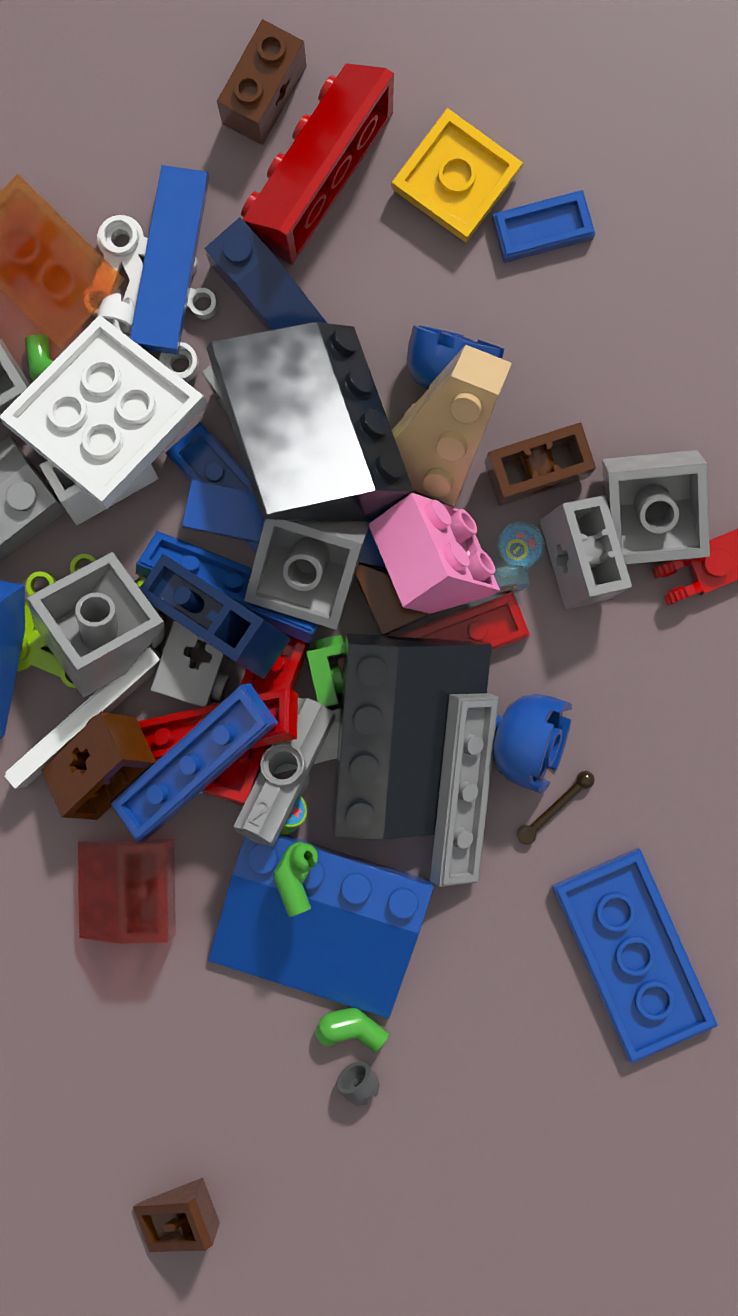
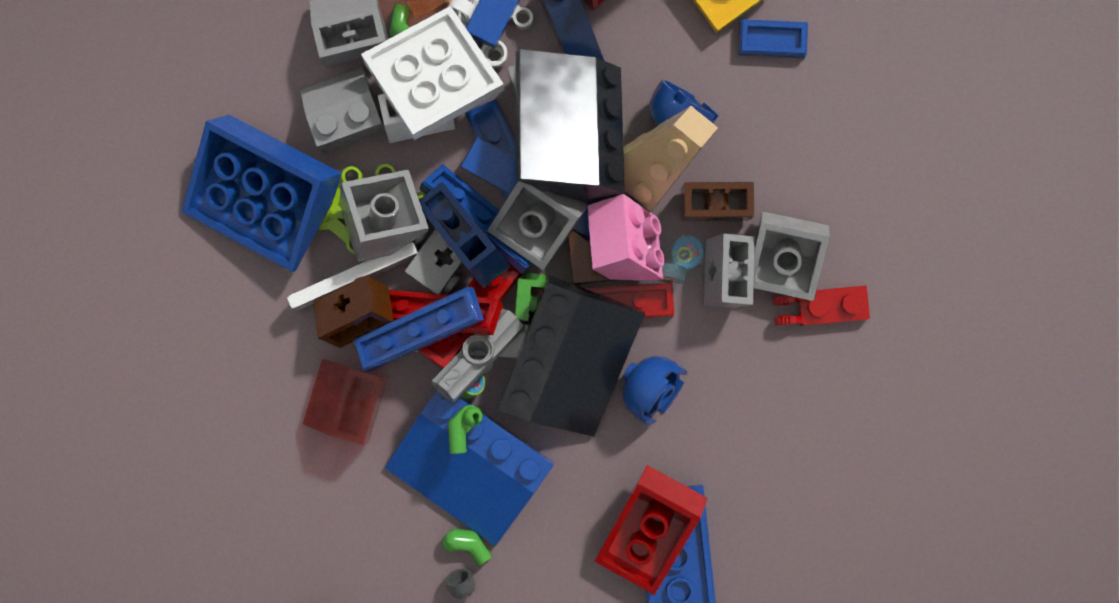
camera: 15 degrees right, 0 degrees up
(464, 789) = (595, 406): light grey tile -> none
(527, 834) = (630, 450): dark brown hinge -> none
(592, 931) = (651, 529): none -> red slope

